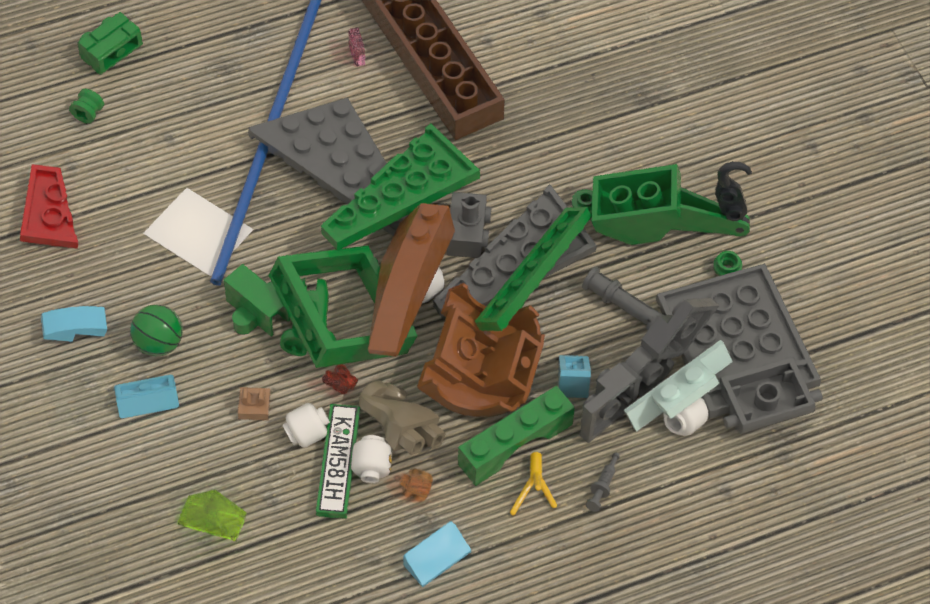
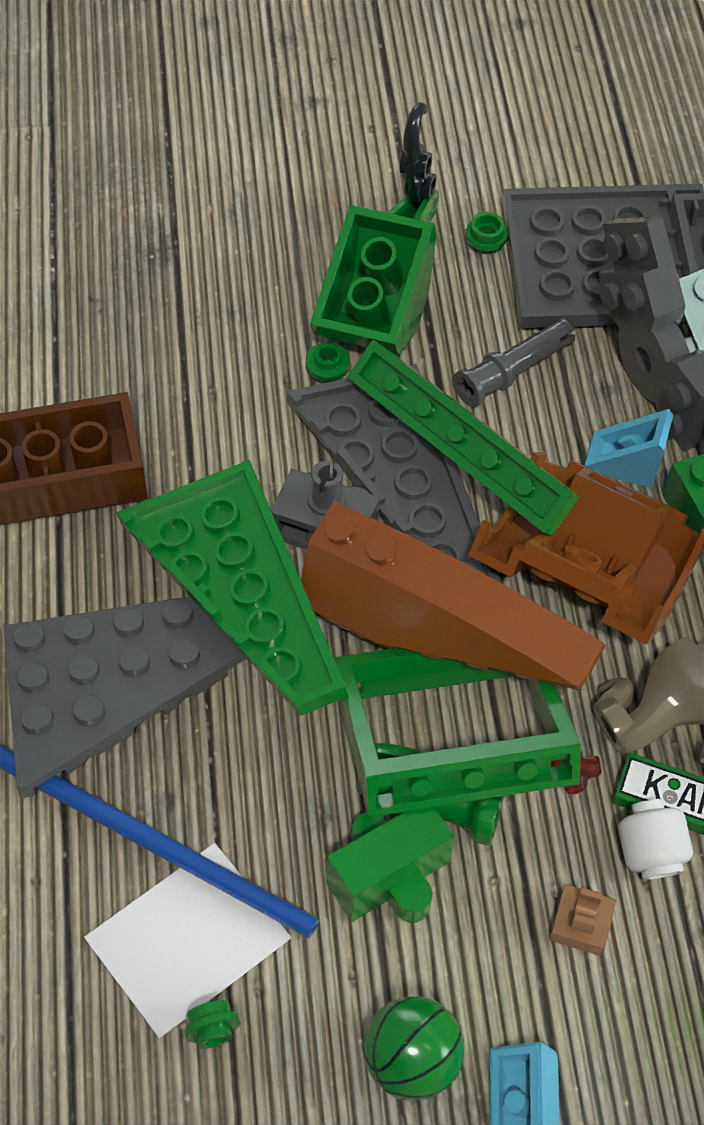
camera: 75 degrees left, 0 degrees up
(150, 247) = (211, 1024): none -> green plate

